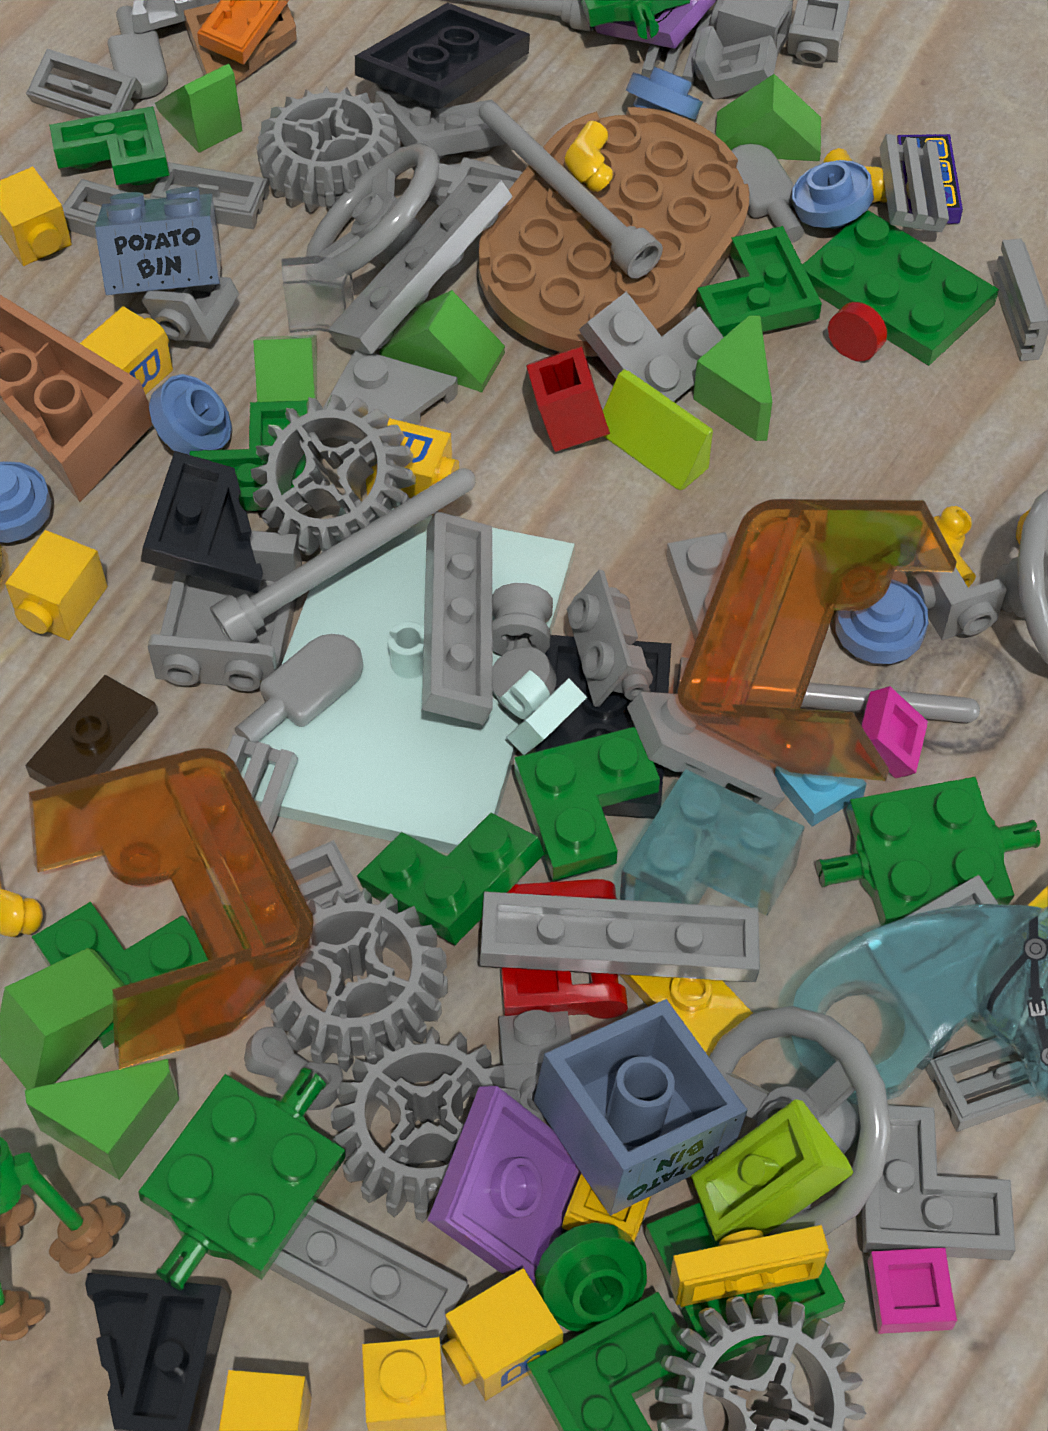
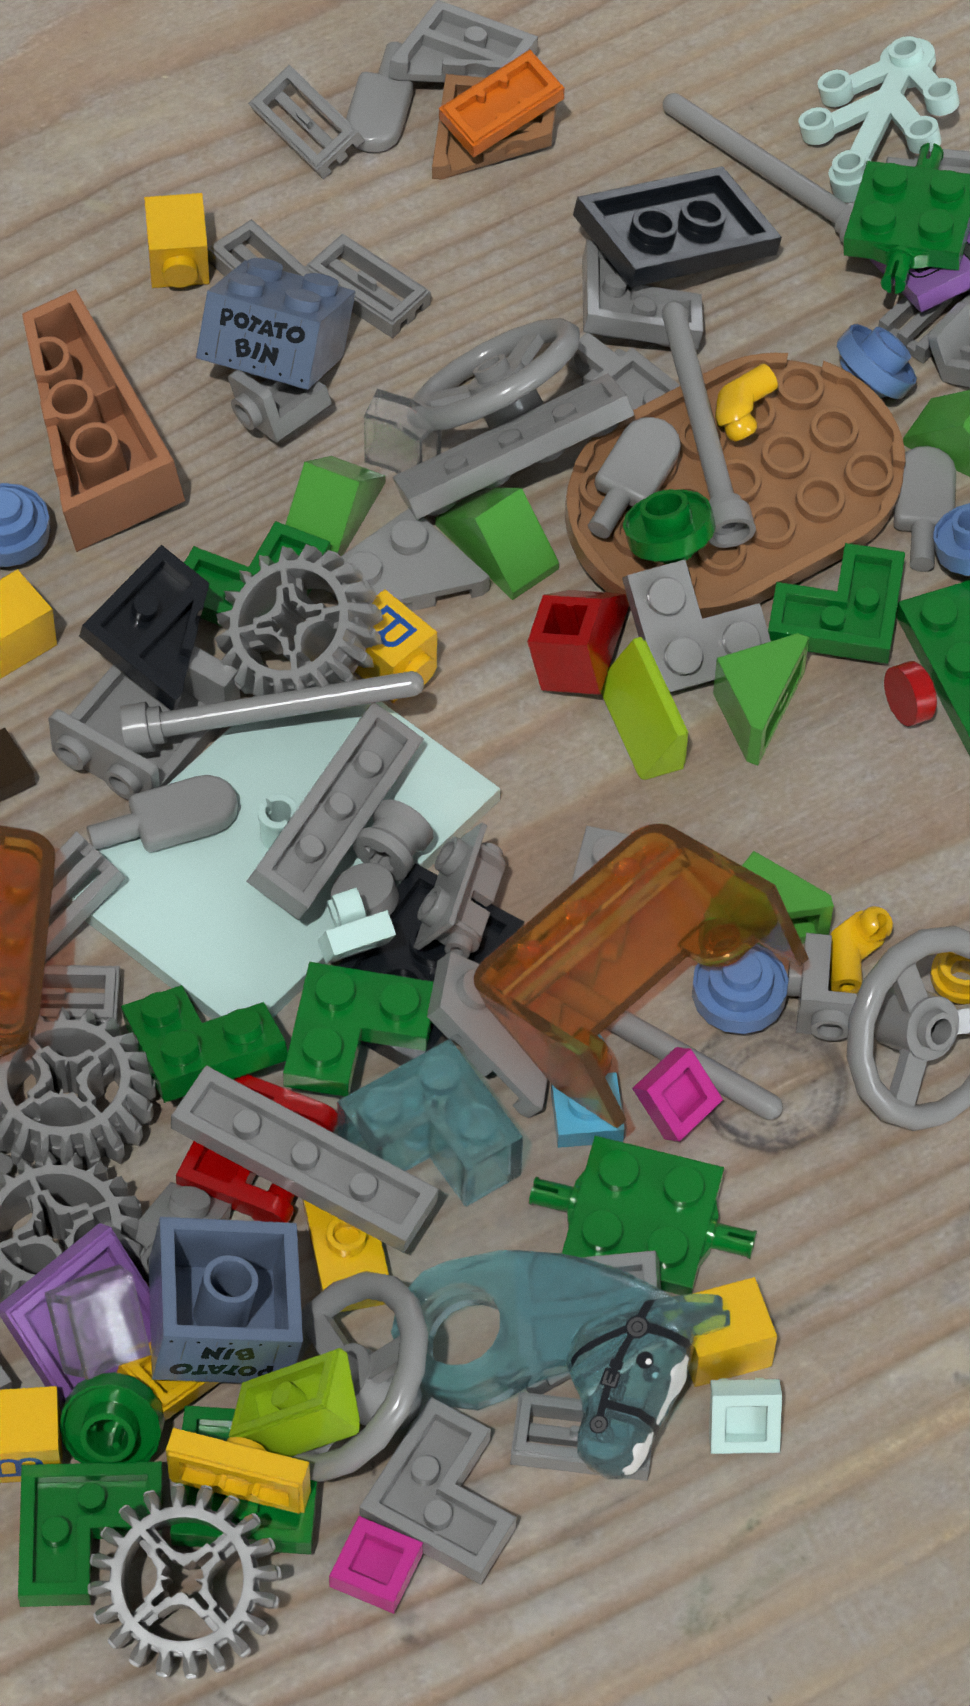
camera: 25 degrees right, 0 degrees up
(125, 137) = (311, 192): green plate -> none
(134, 346) = (193, 423): yellow brick -> none
(189, 415) = (213, 511): medium blue plate -> none
(204, 109) = (409, 192): bright green slope -> none
(323, 145) = (504, 267): light grey gear -> none
(533, 1185) = (97, 1322): none -> clear piece
(535, 243) = (634, 470): none -> light grey piece
(596, 270) = (669, 525): none -> green plate

